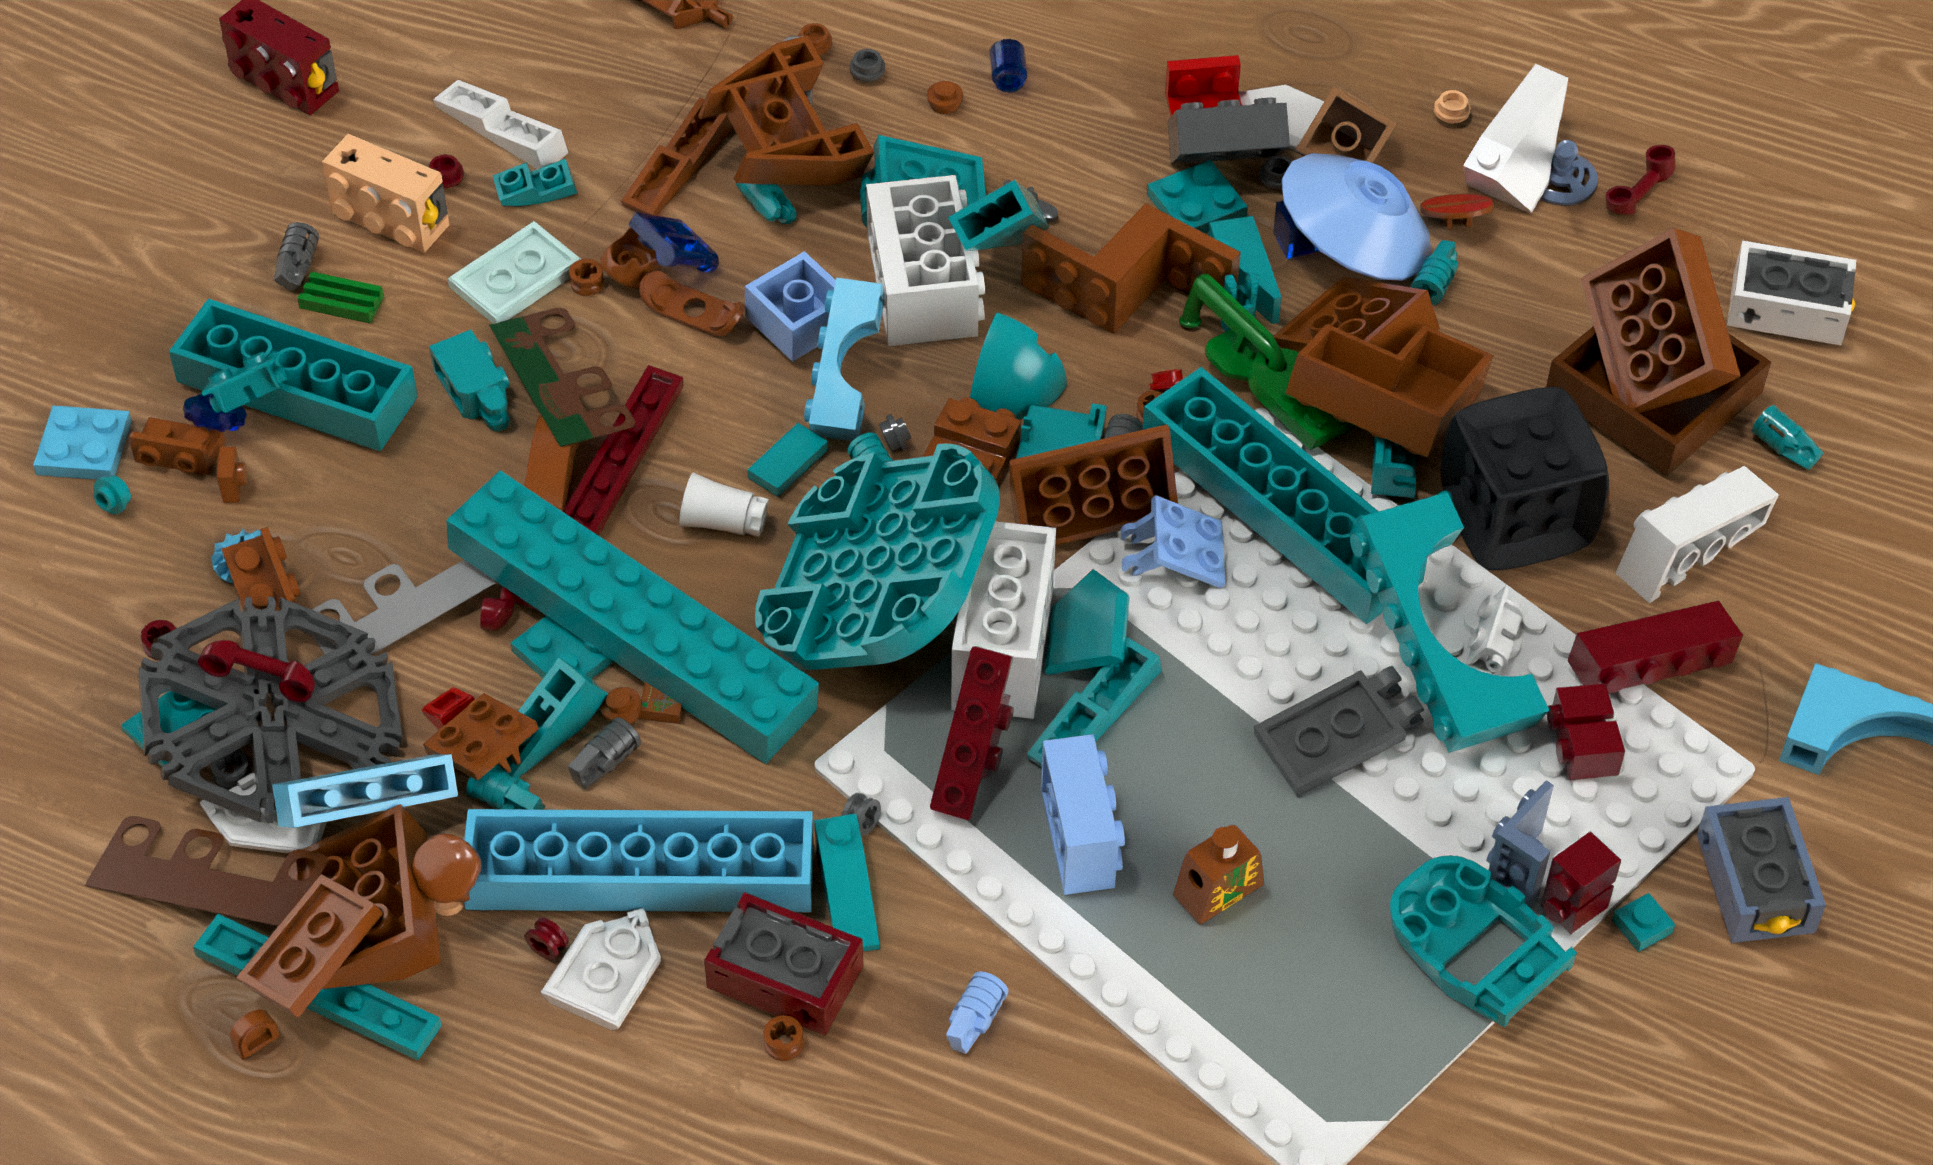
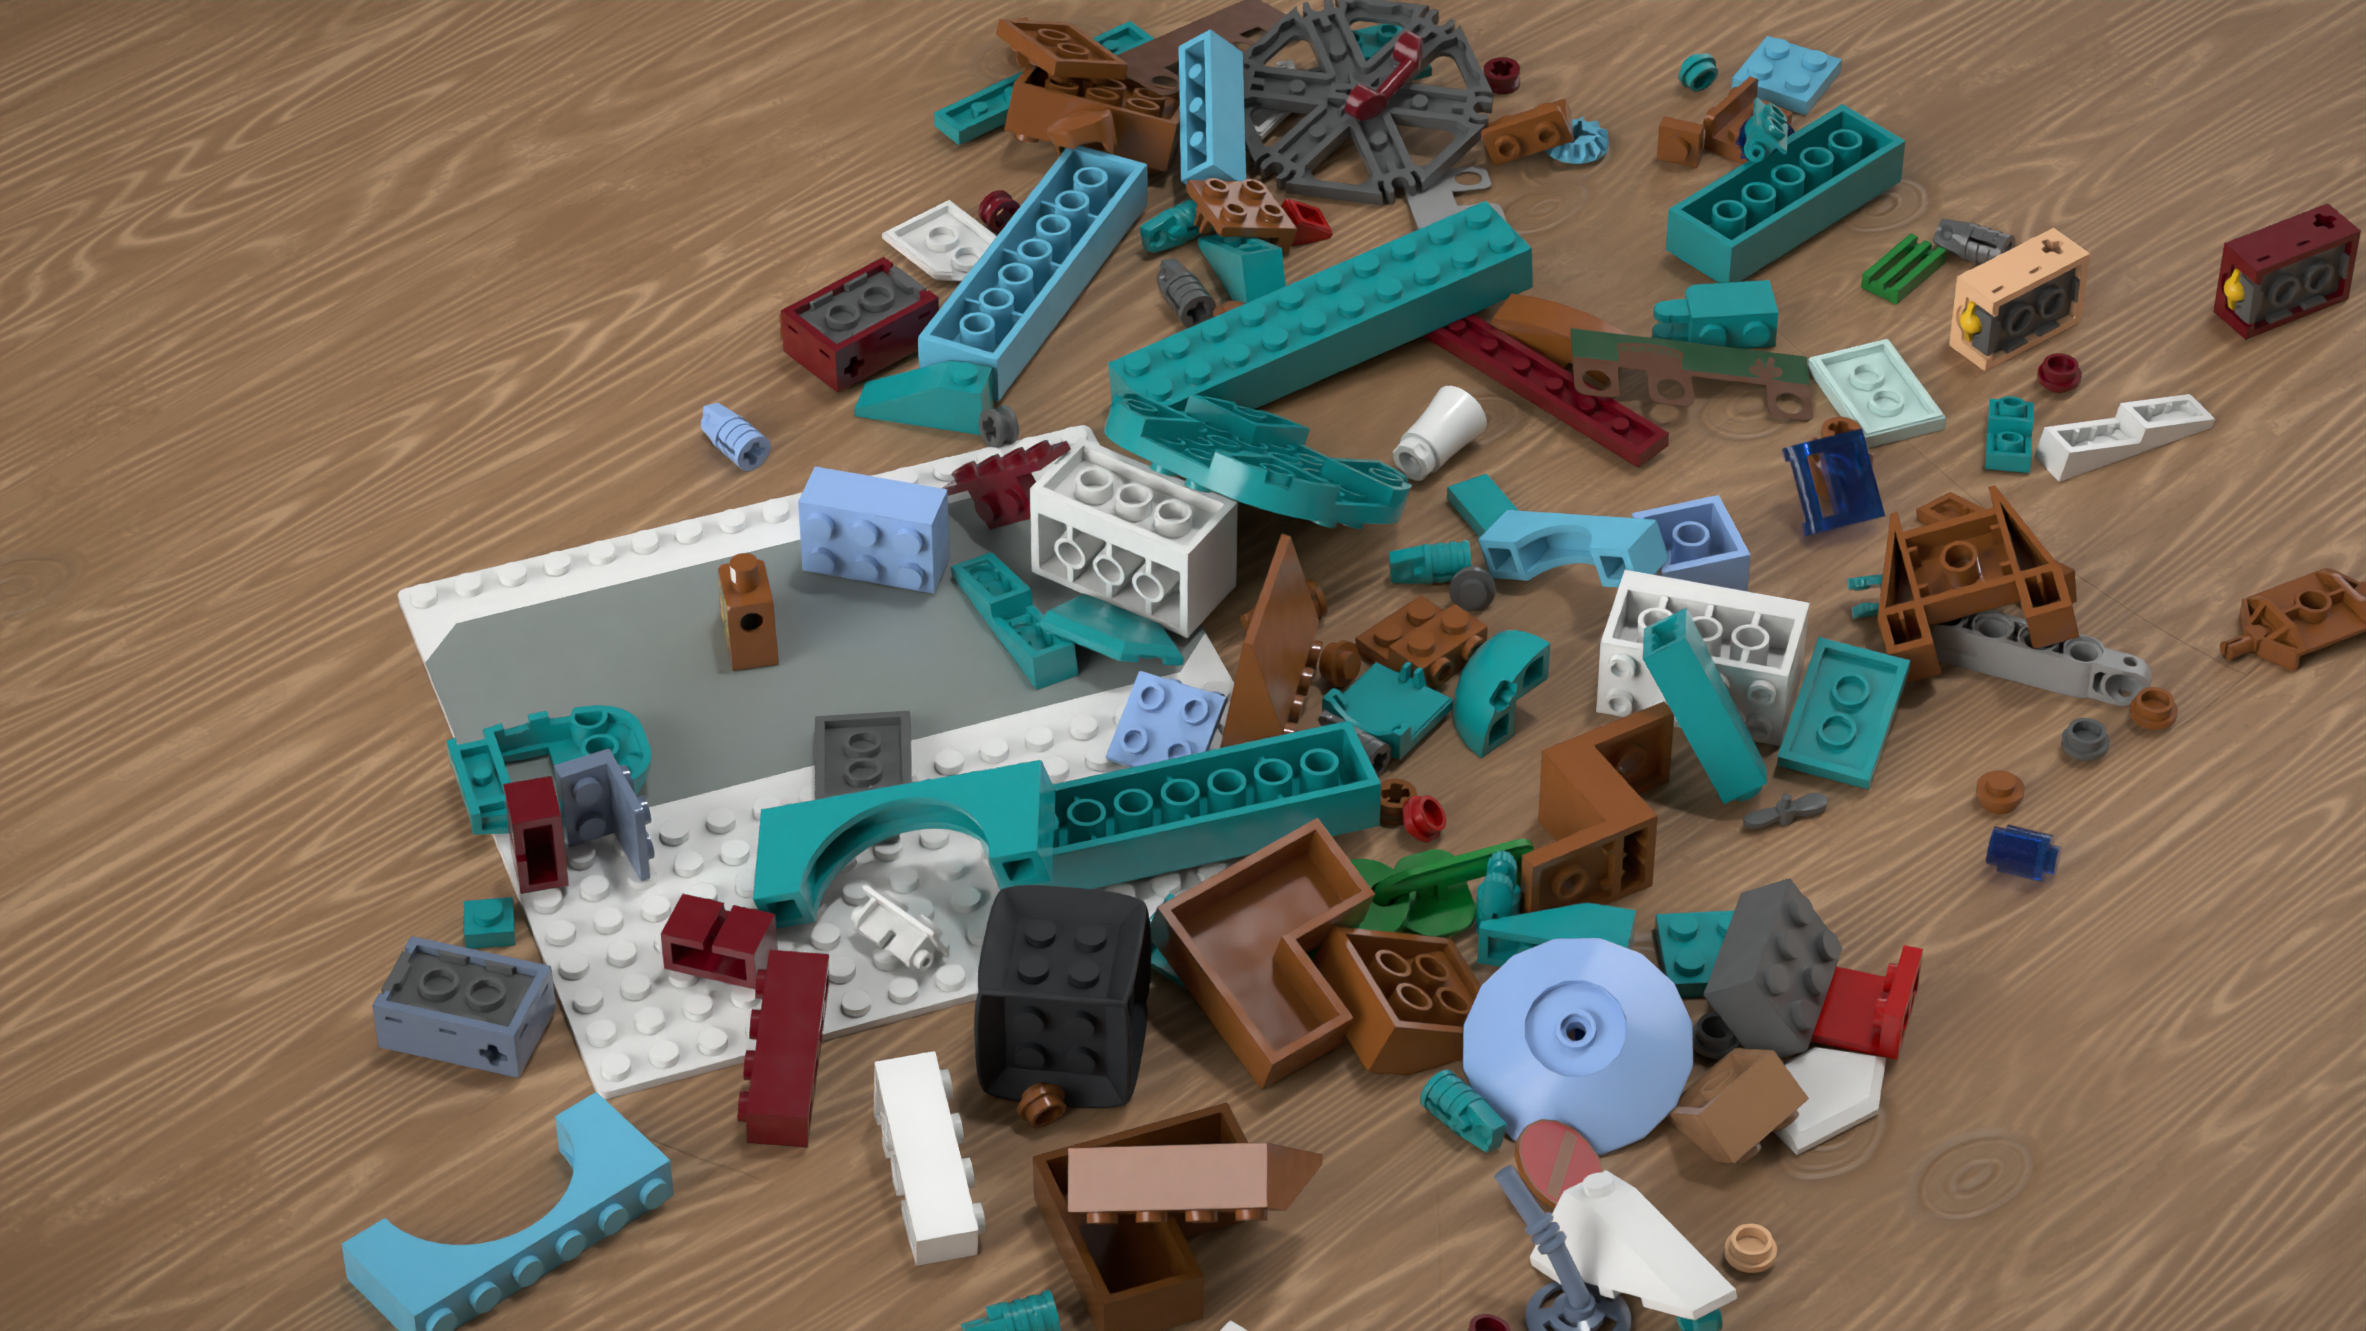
camera: 115 degrees right, 10 degrees down
(670, 299) = (1773, 489): dark orange piece -> none

